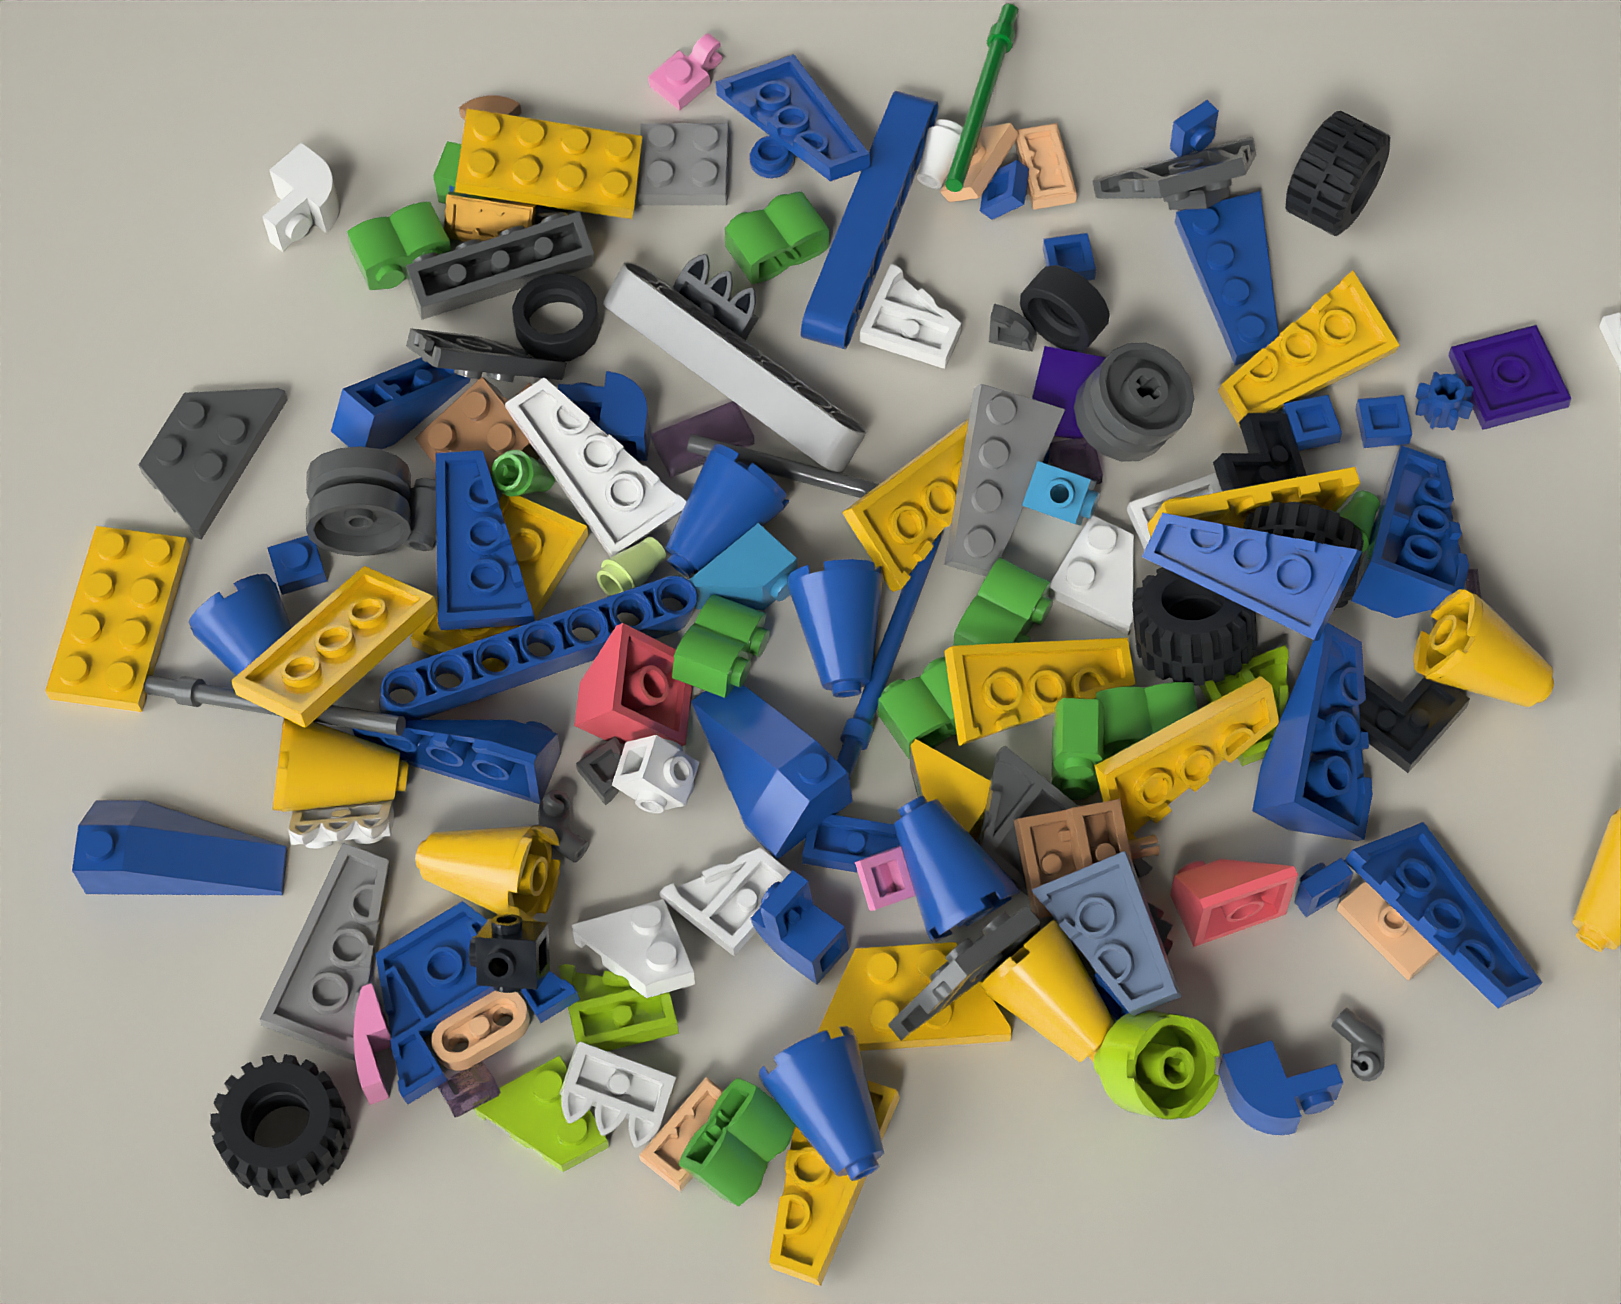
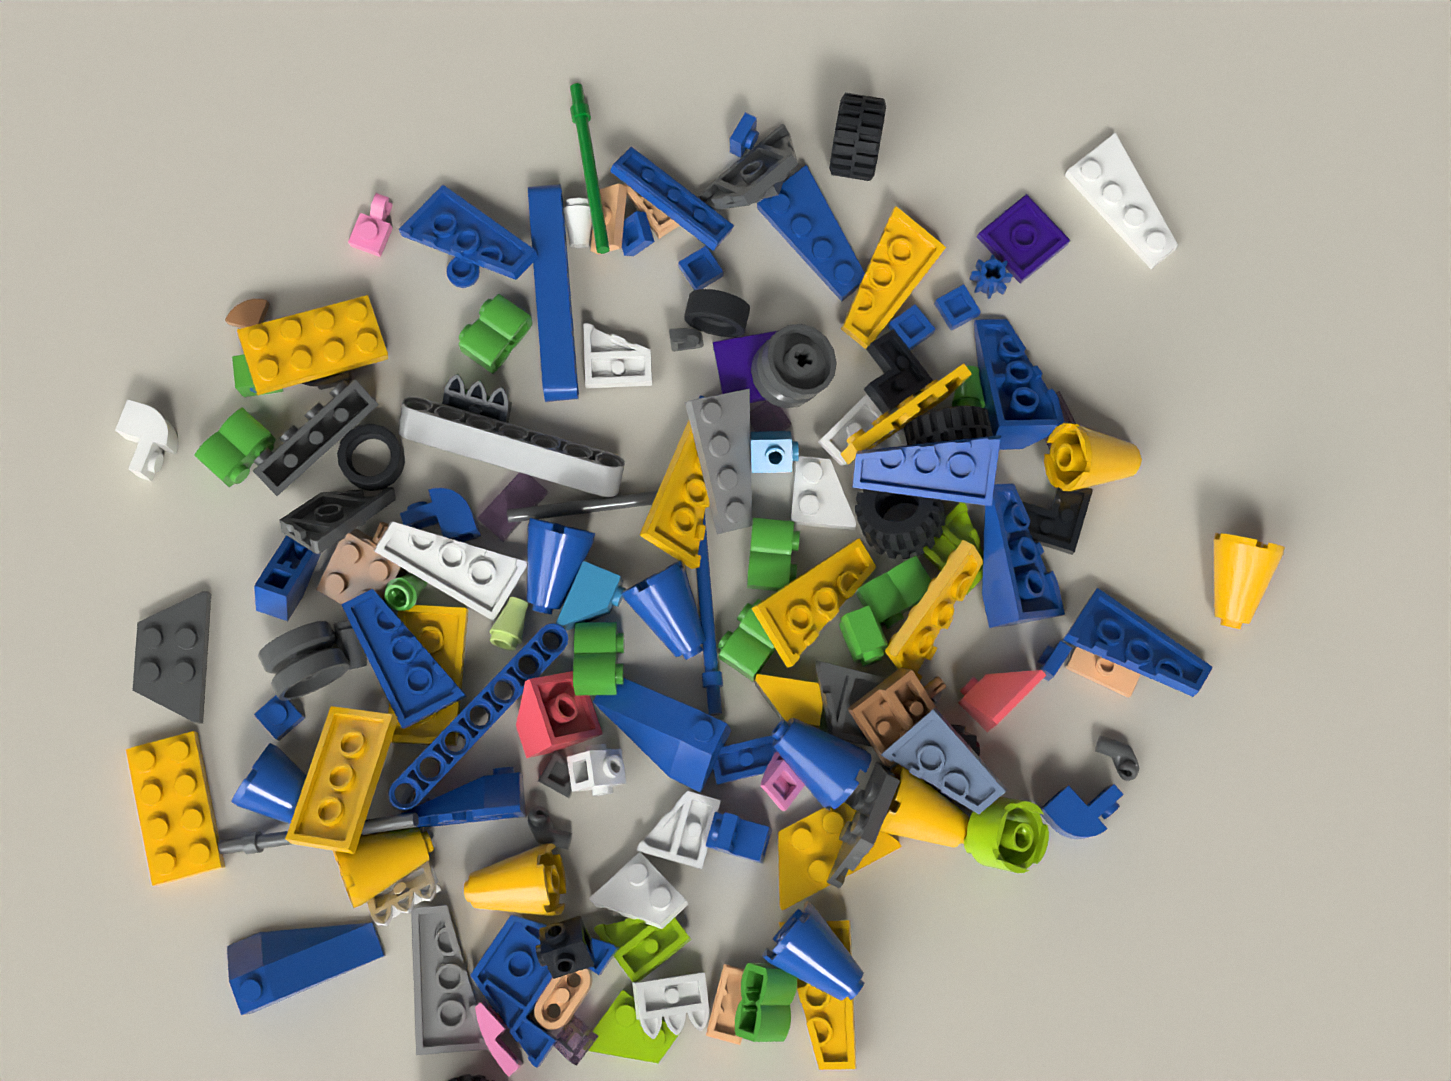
camera: 25 degrees left, 15 degrees up
(484, 217) = (288, 402): plate -> none
(683, 164) = (403, 300): light grey plate -> none
(1069, 164) = (672, 198): none -> blue tile

